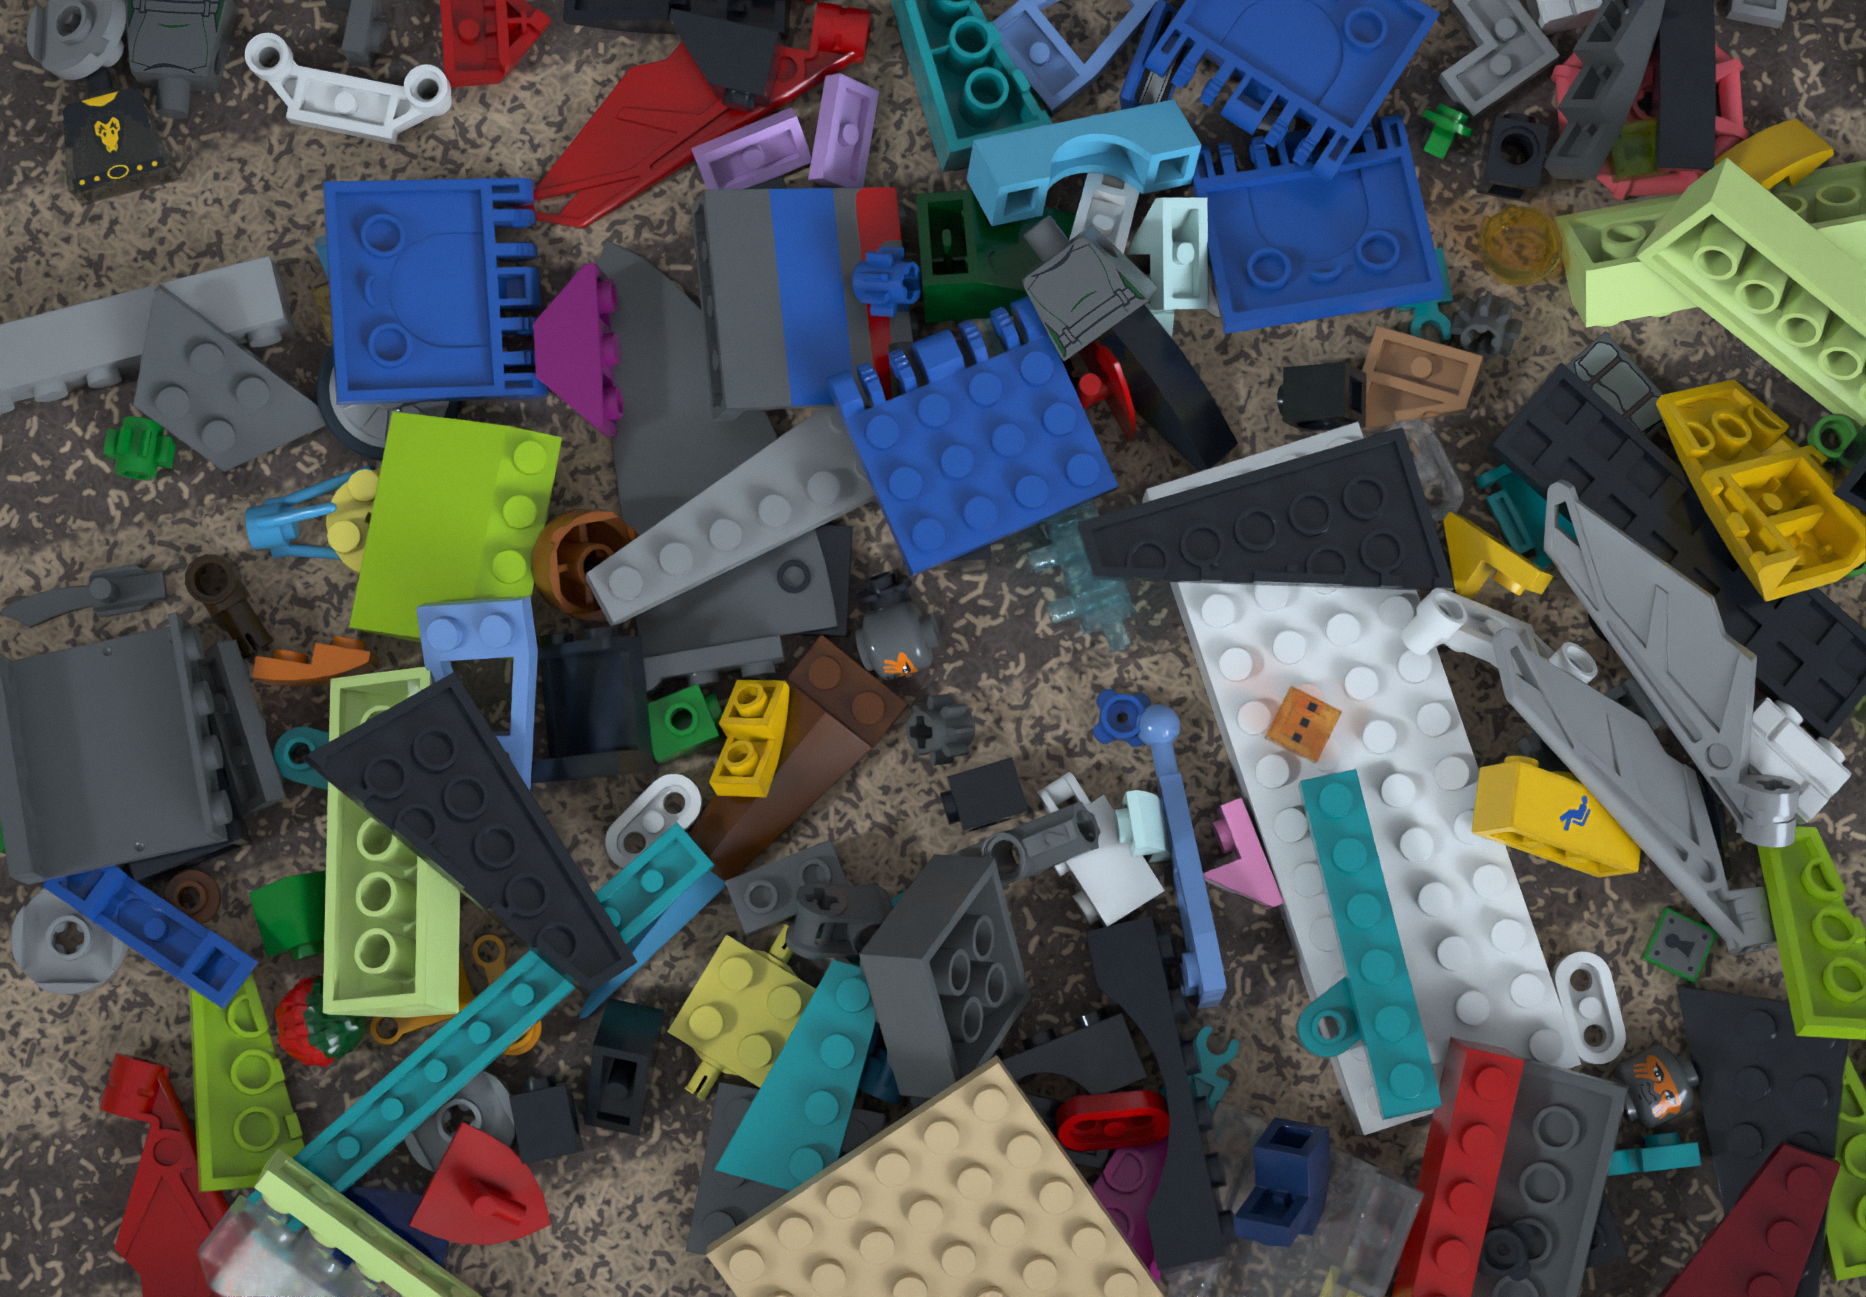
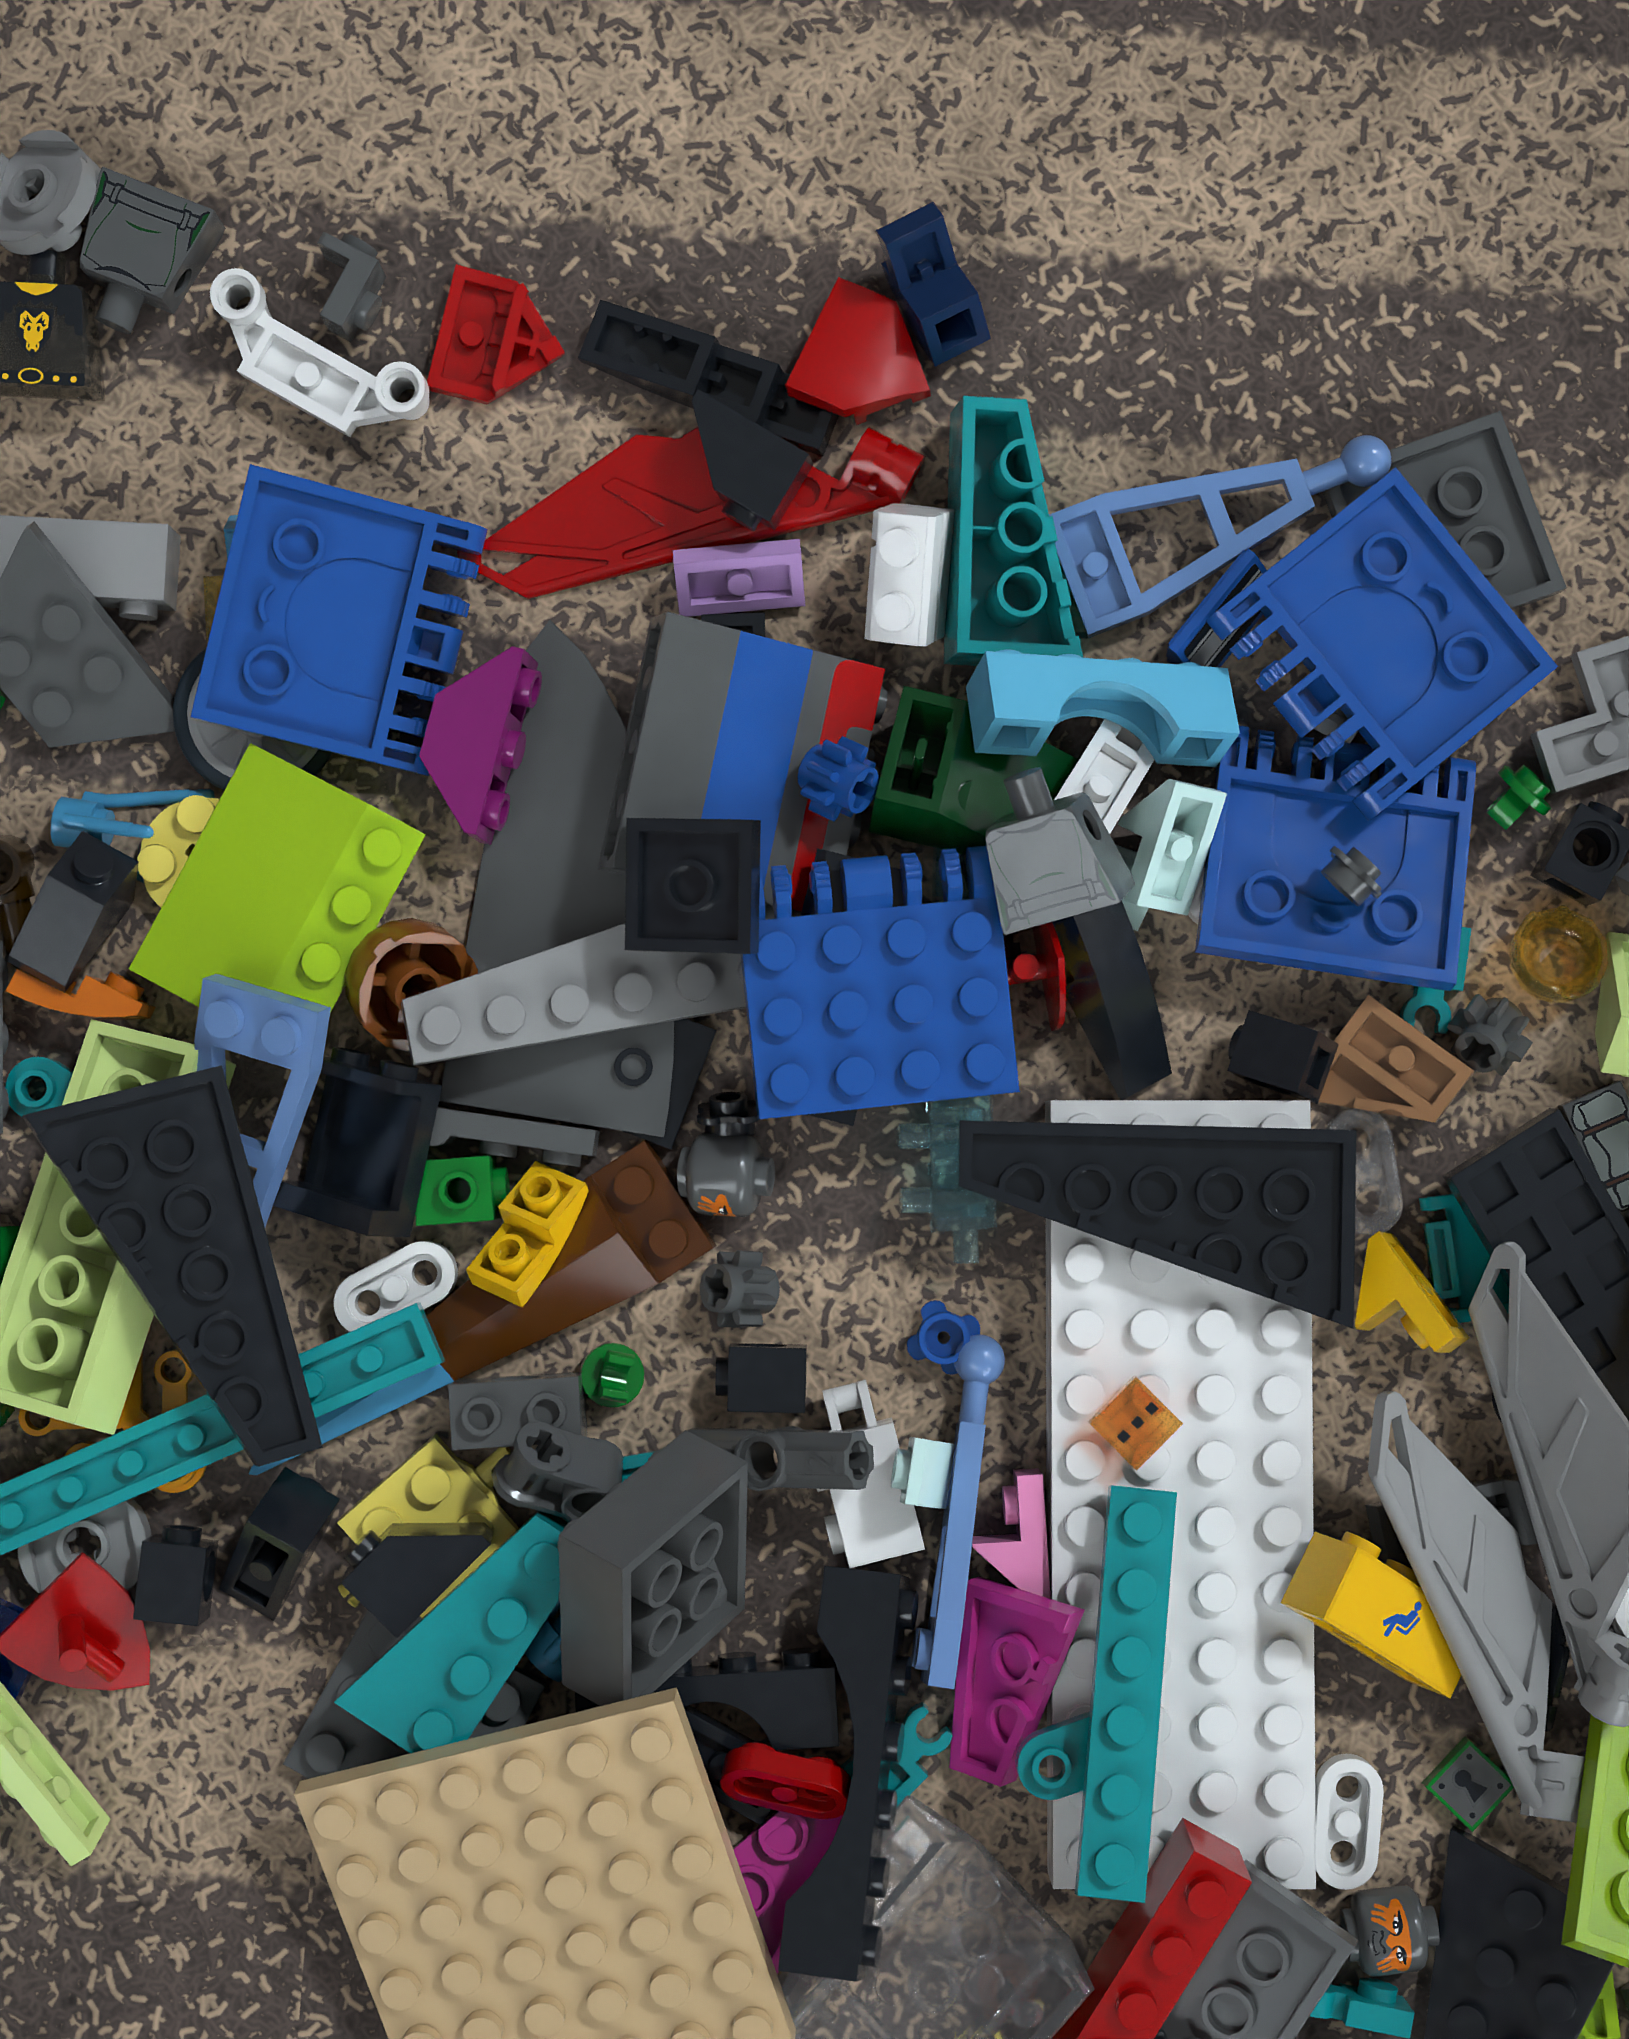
camera: 20 degrees right, 5 degrees up
(290, 593) = (75, 911): none -> black slope
(741, 1043) = (411, 1567): none -> black slope
(797, 399) = (692, 885): none -> black tile
(843, 133) = (838, 599): lavender plate -> none
(857, 837) = (612, 1375): none -> green plate
(890, 105) = (909, 574): none -> white brick
(1266, 974) = (1005, 1674): none -> dark pink wing
(1289, 1183) = (953, 1919): dark blue brick -> none
(1331, 228) = (1352, 875): none -> dark grey plate
(1469, 628) = (1363, 1369): white plate -> none

